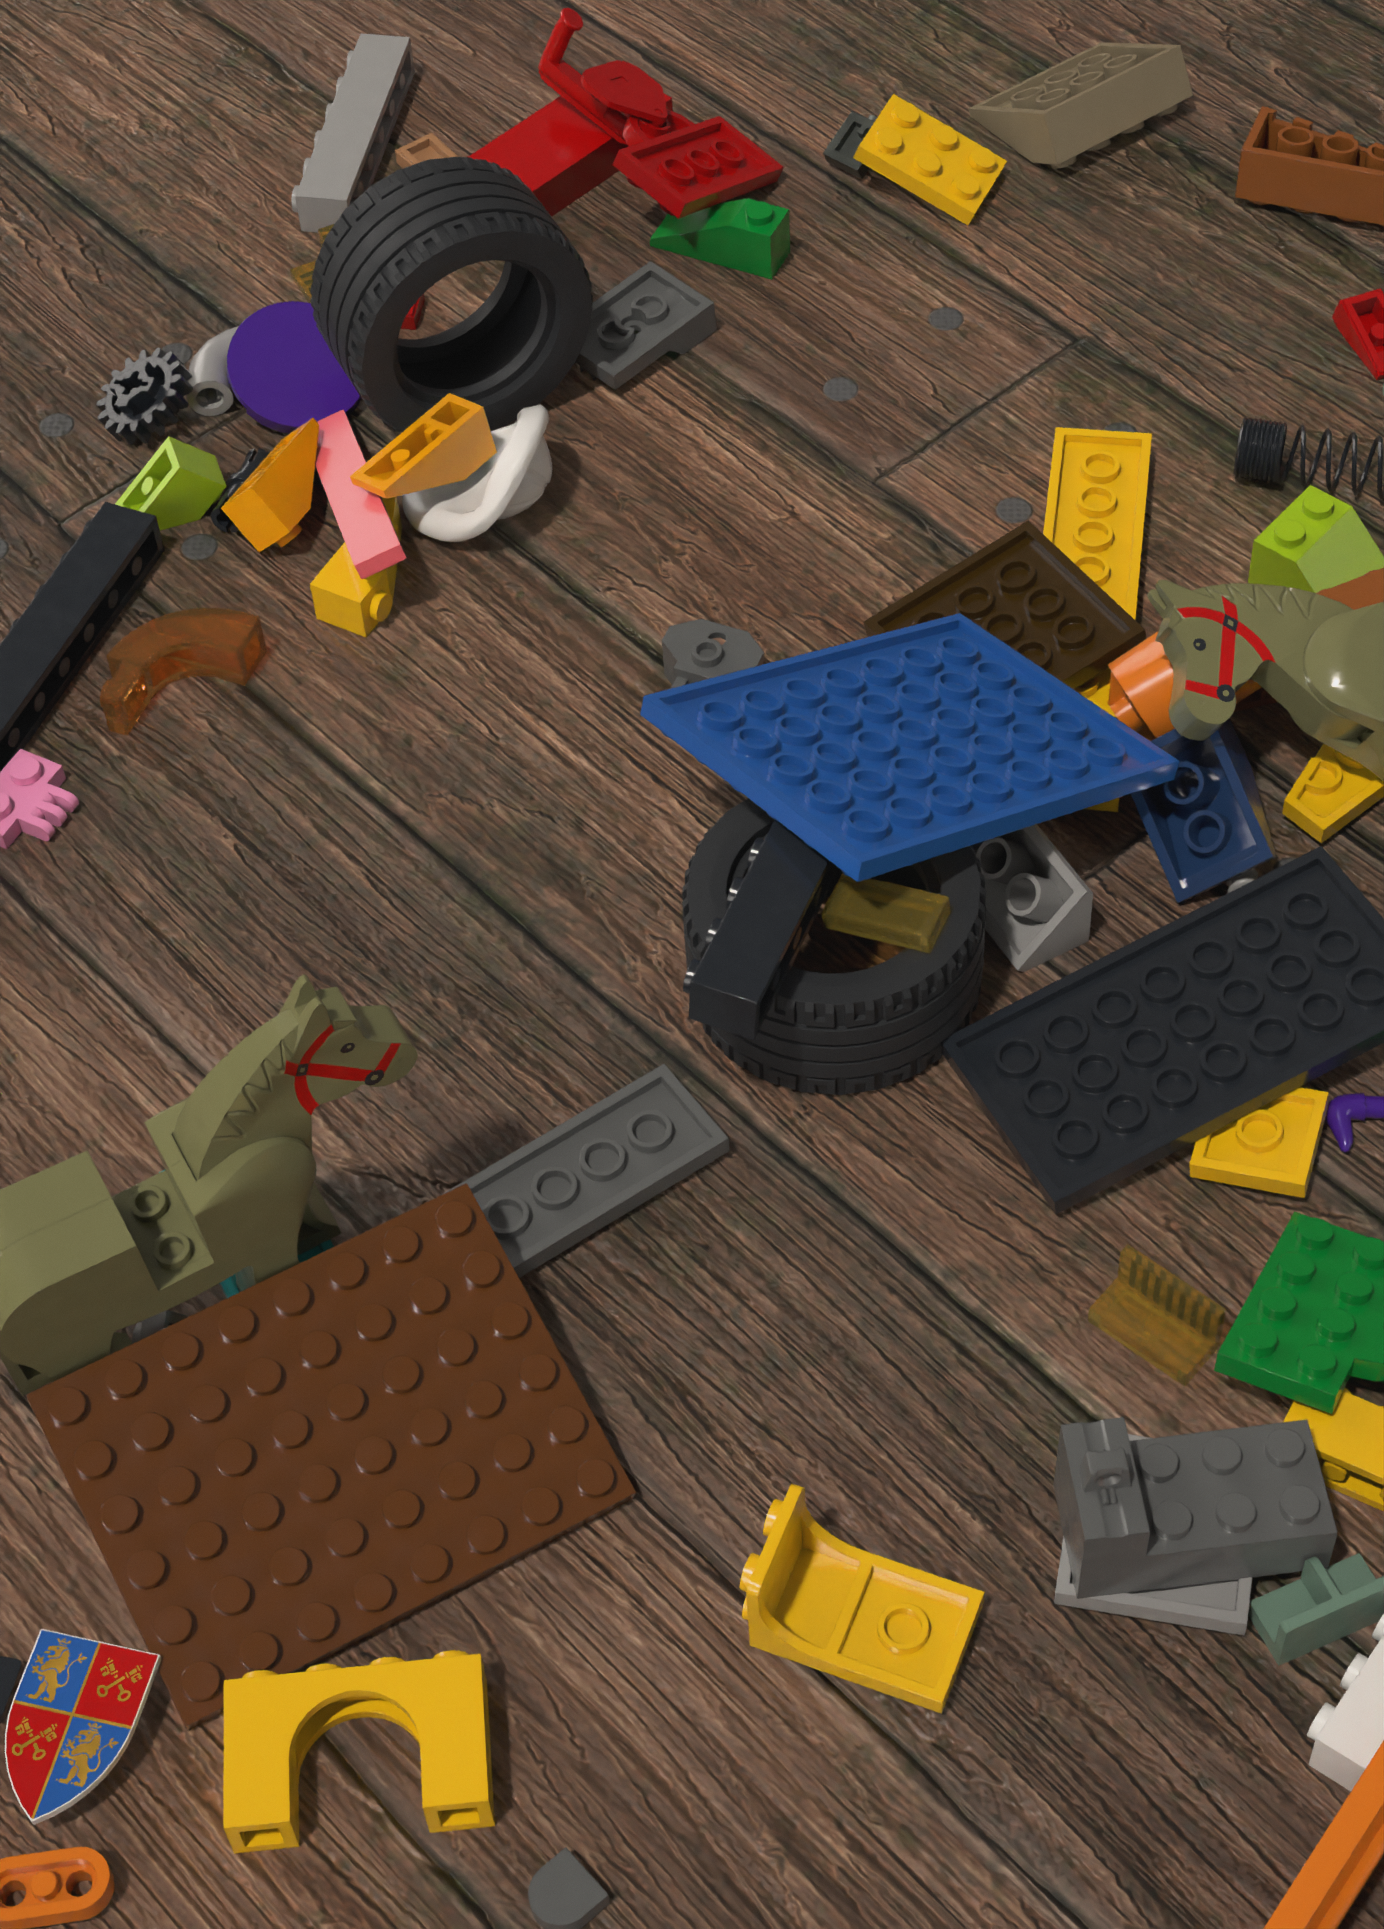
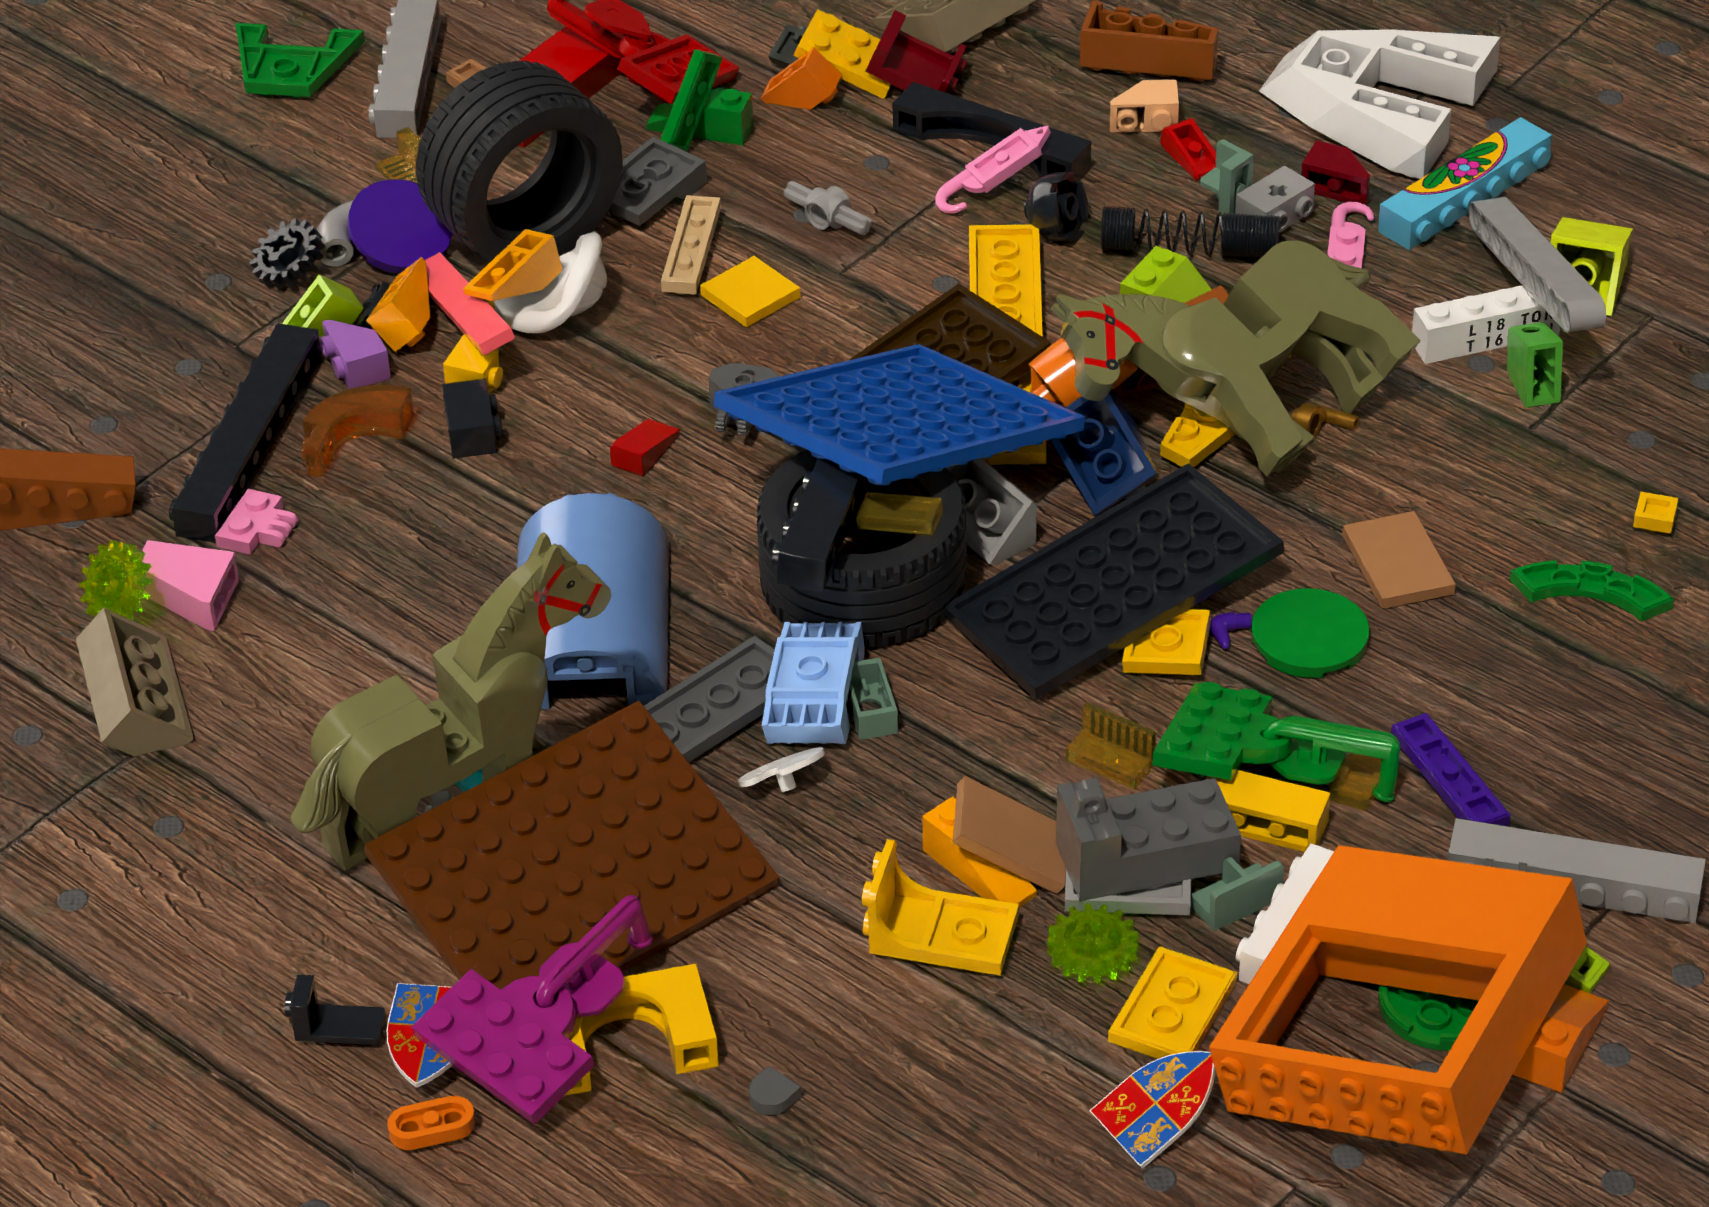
camera: 10 degrees left, 10 degrees down
(185, 1779) = (519, 1035): none -> magenta plate
(206, 554) = (355, 353): none -> medium lavender slope
(211, 126) = (290, 68): none -> green wing
(335, 667) = (470, 418): none -> black brick
(468, 952) = (632, 558): none -> medium blue cylinder
(562, 730) = (642, 446): none -> red slope
(669, 1296) = (782, 769): none -> white piece
(677, 424) = (691, 244): none -> tan plate
(705, 214) = (691, 99): none -> green tile
(732, 1154) = (811, 682): none -> light blue plate
(746, 501) = (750, 291): none -> yellow tile
(809, 1159) = (871, 685): none -> sand green piece
(863, 196) = (803, 83): none -> orange slope
(868, 384) = (827, 207): none -> light grey axle
(932, 1492) = (976, 872): none -> light orange slope
(980, 1470) = (1008, 834): none -> medium nougat tile
(1014, 179) = (906, 60): none -> dark red panel
(1030, 255) = (939, 115): none -> black arch
(1084, 1686) = (1092, 943): none -> clear neon green gear
(1101, 340) = (994, 166): none -> bright pink plate
(1180, 410) = (1057, 207): none -> black cylinder
(1200, 1810) = (1172, 1005): none -> yellow tile
(1319, 267) = (1145, 107): none -> light nougat slope

